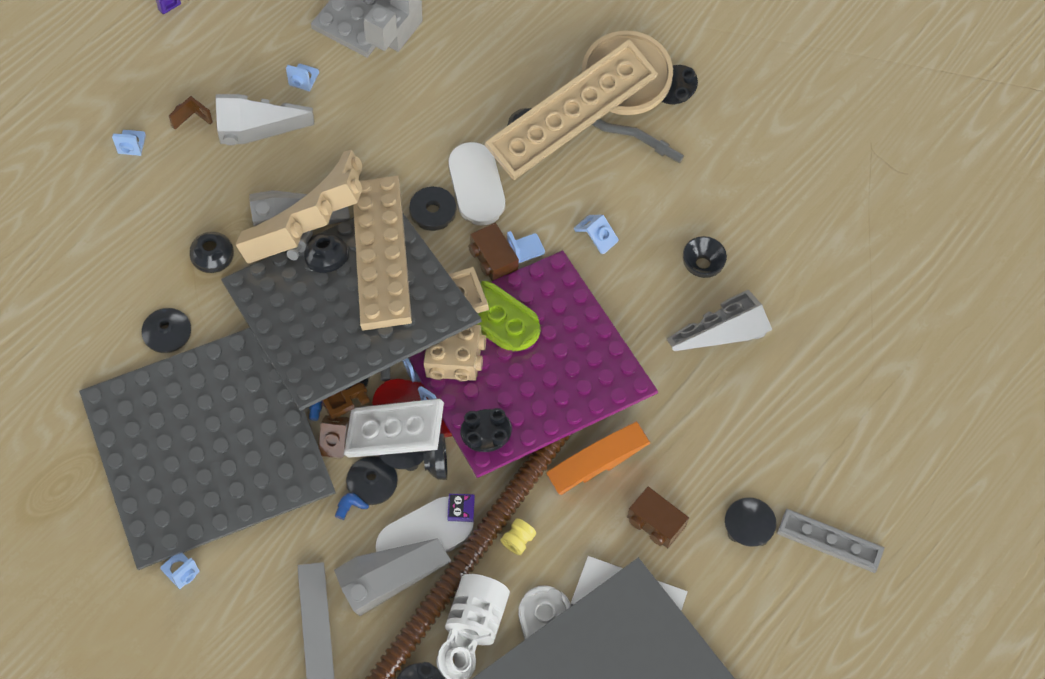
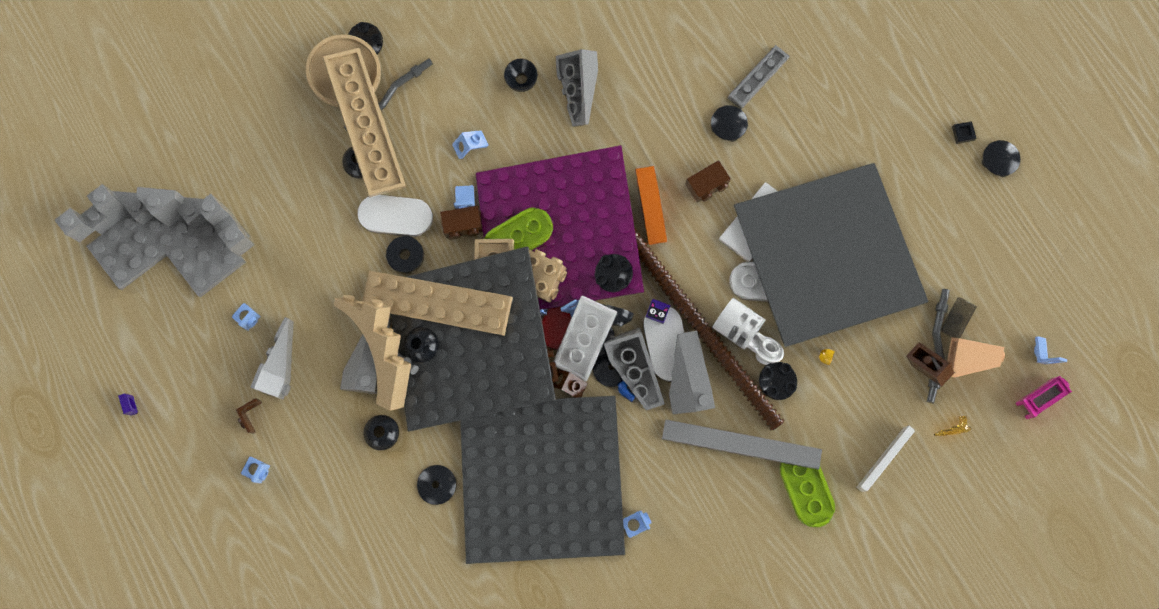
camera: 65 degrees left, 15 degrees up
(386, 497) = (631, 360): none -> light grey wedge
(518, 536) = (691, 279): light yellow wheel -> none

